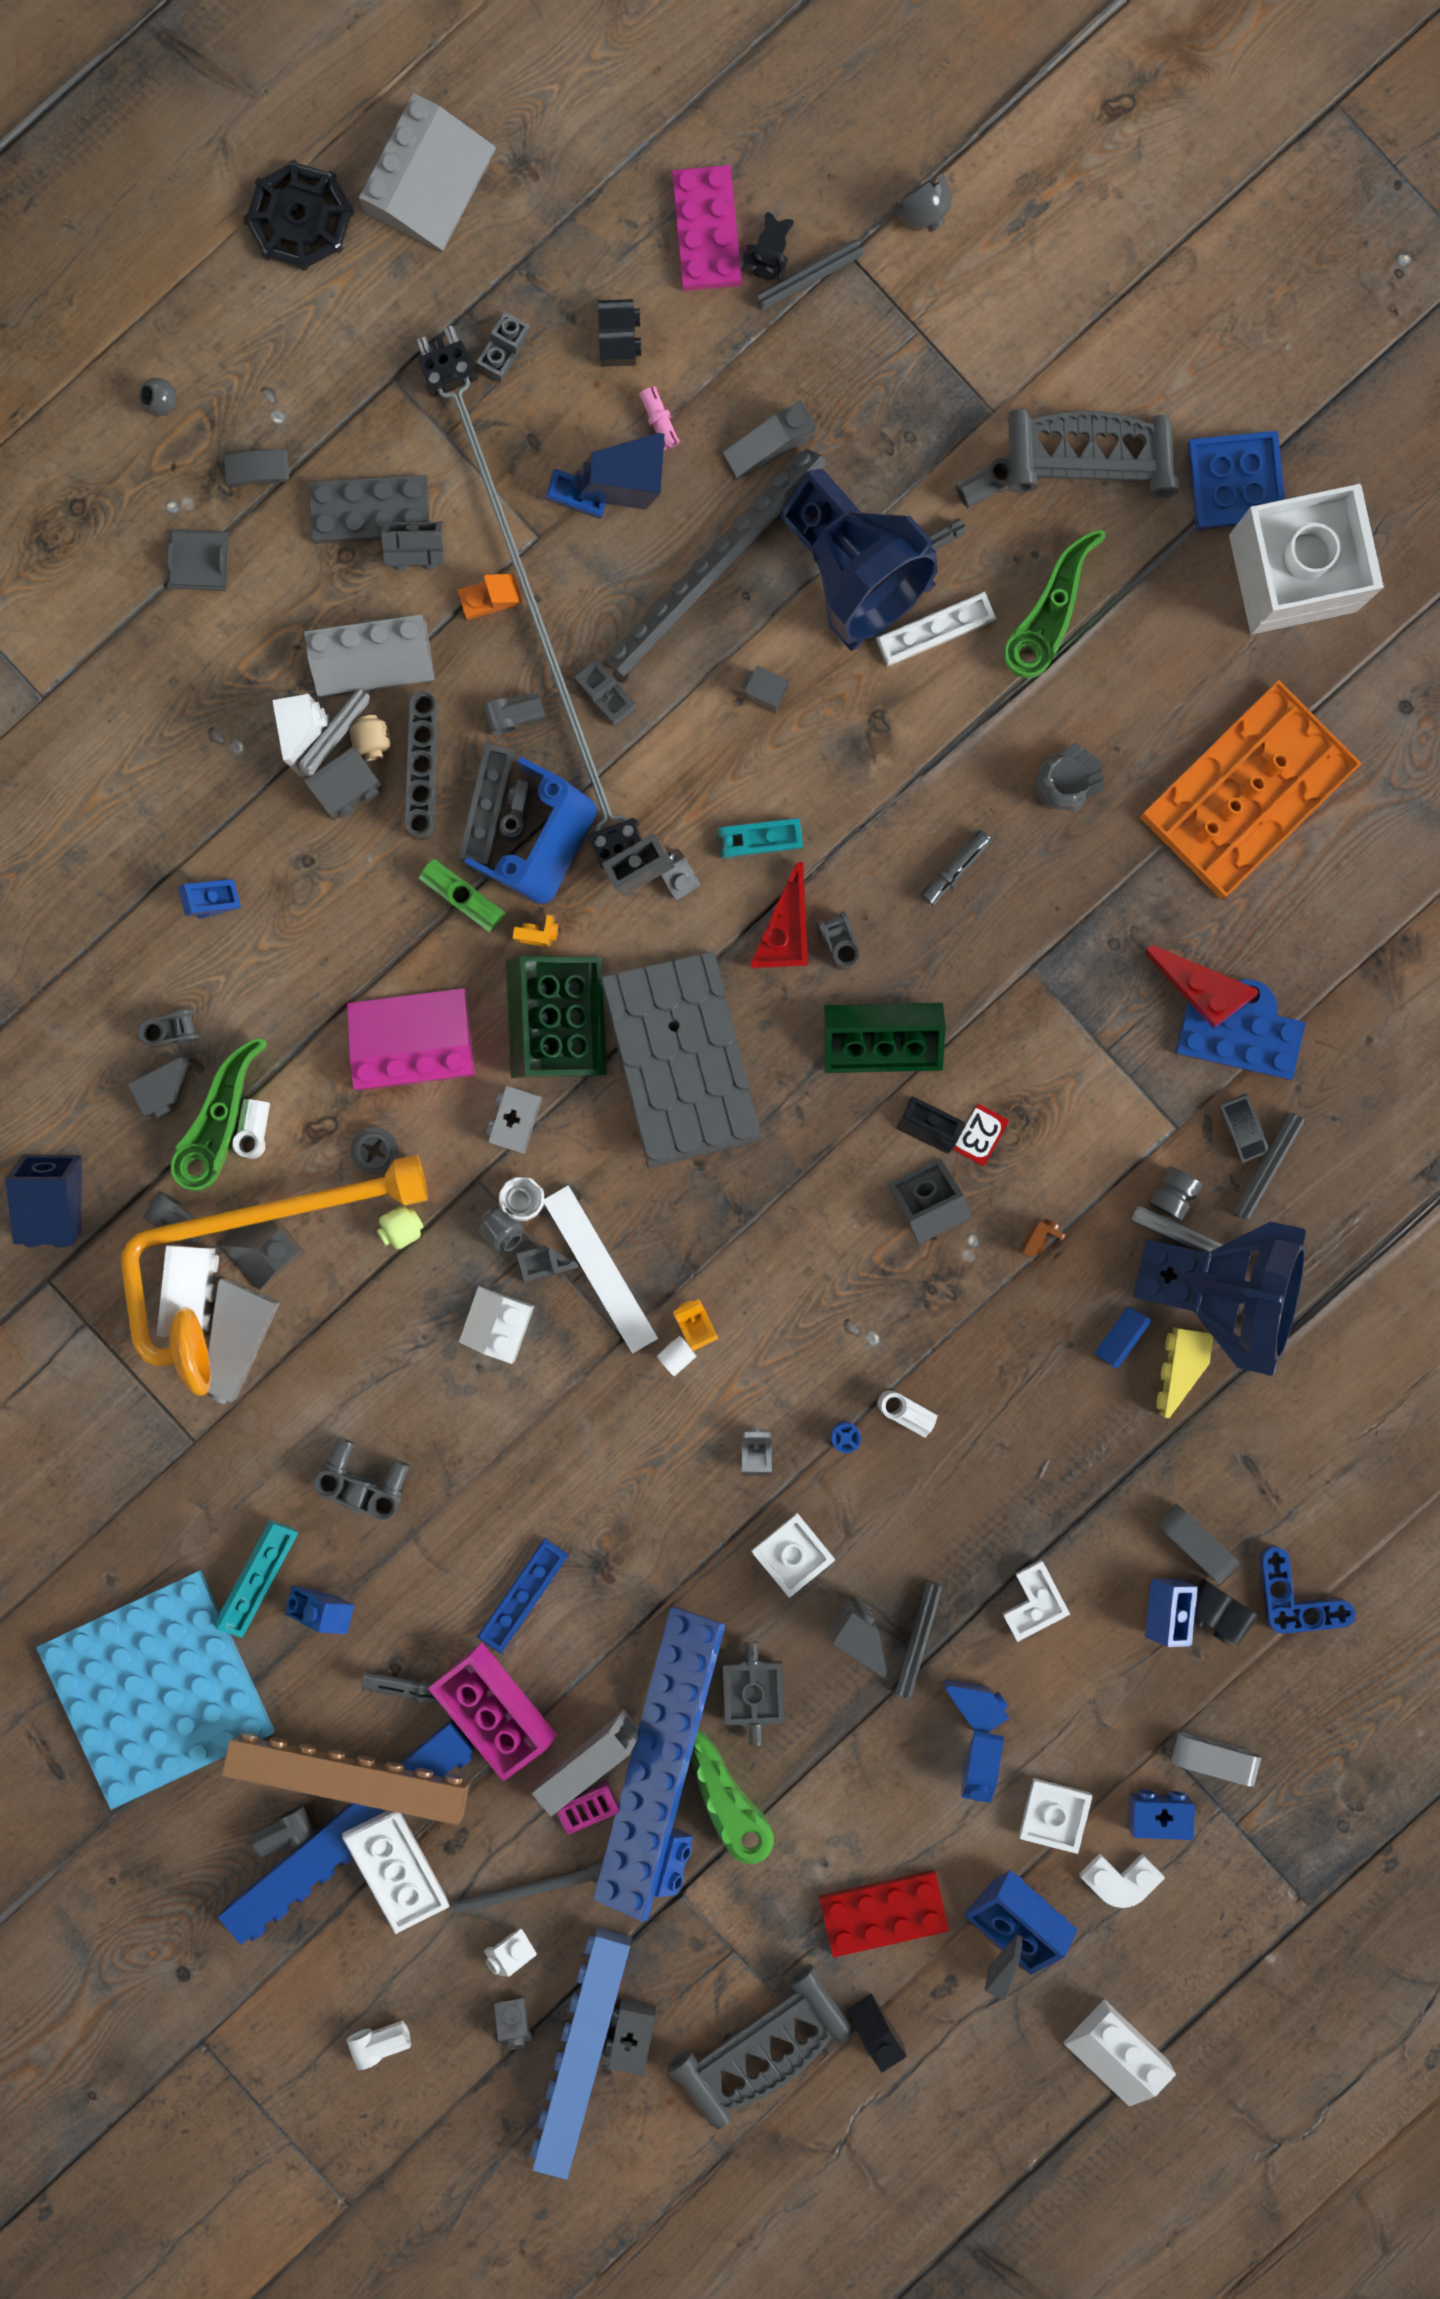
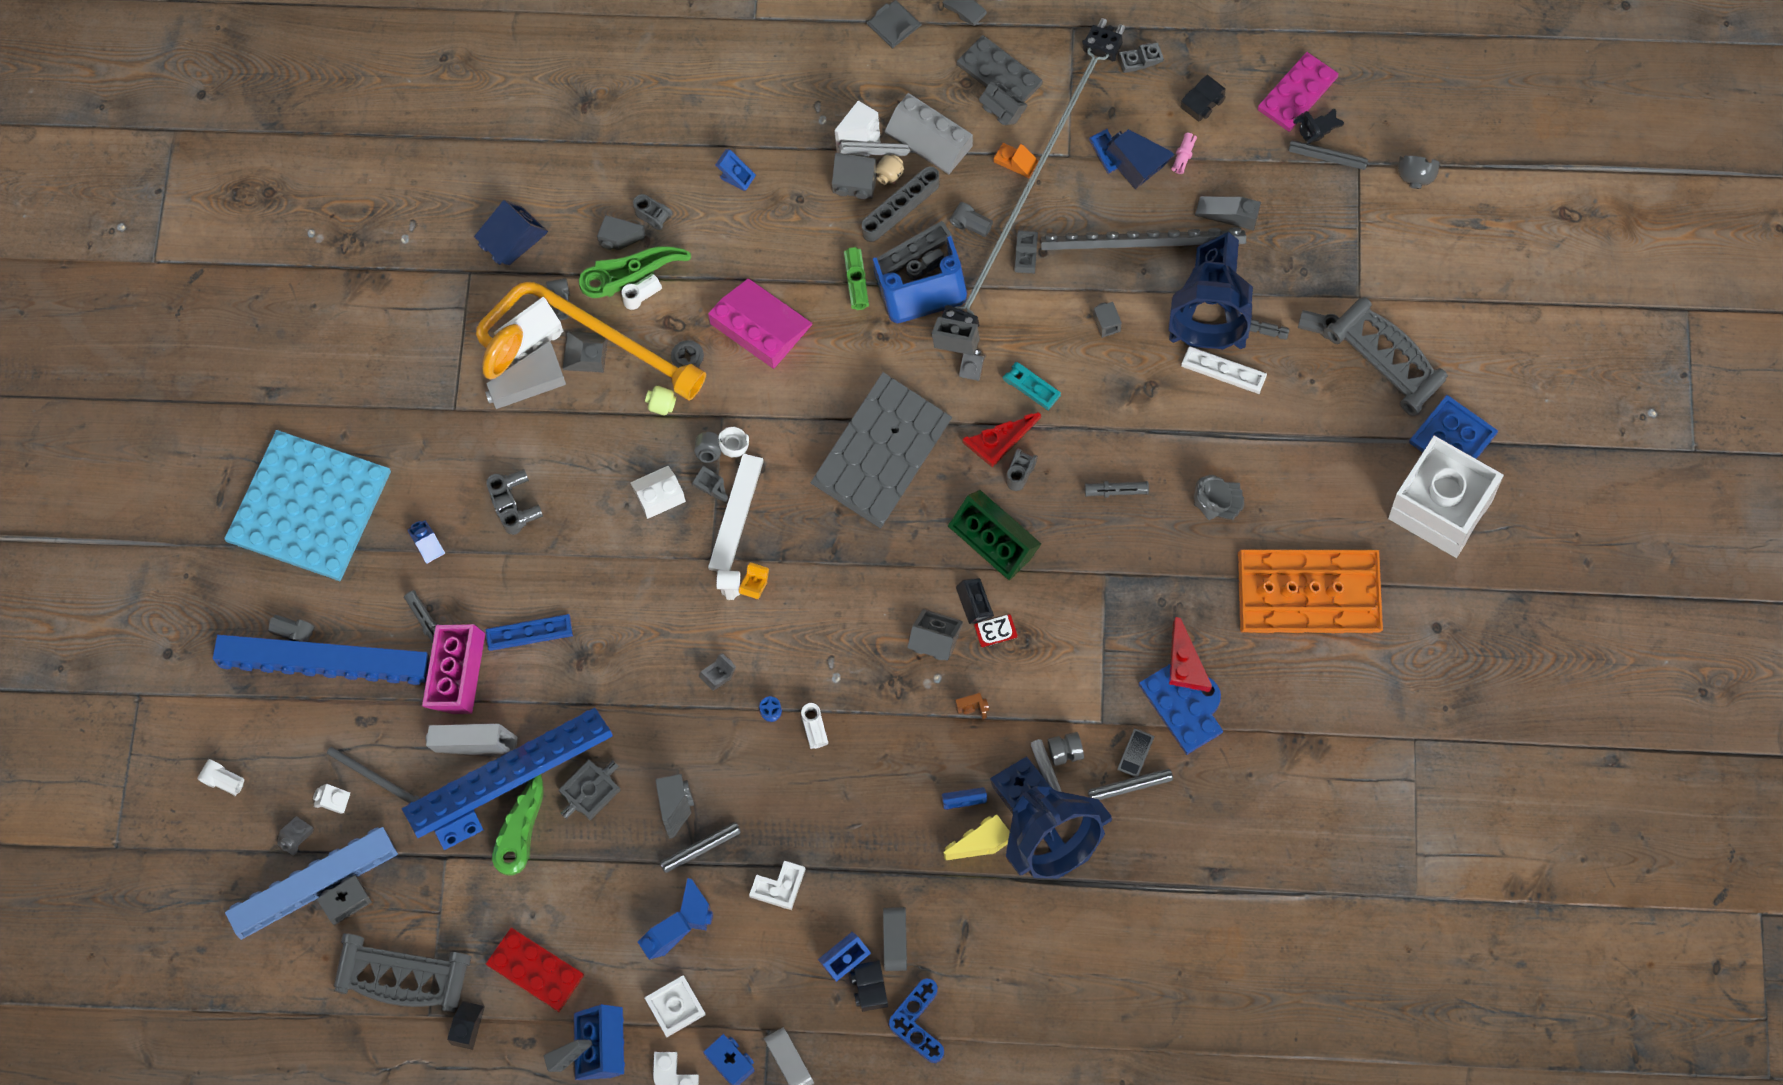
camera: 50 degrees right, 20 degrees down
(255, 1578) = (412, 497): teal plate -> none
(346, 1779) = (351, 626): medium nougat brick -> none
(395, 1870) = (324, 698): white tile -> none
(527, 1108) = (780, 403): light grey brick -> none
(532, 935) = (872, 329): light orange bracket -> none
(555, 1016) = (841, 375): dark green slope -> none
(602, 1813) = (463, 770): dark pink slope -> none
(793, 1555) = (682, 741): white plate -> none
(1050, 617) = (1289, 410): bright green animal -> none

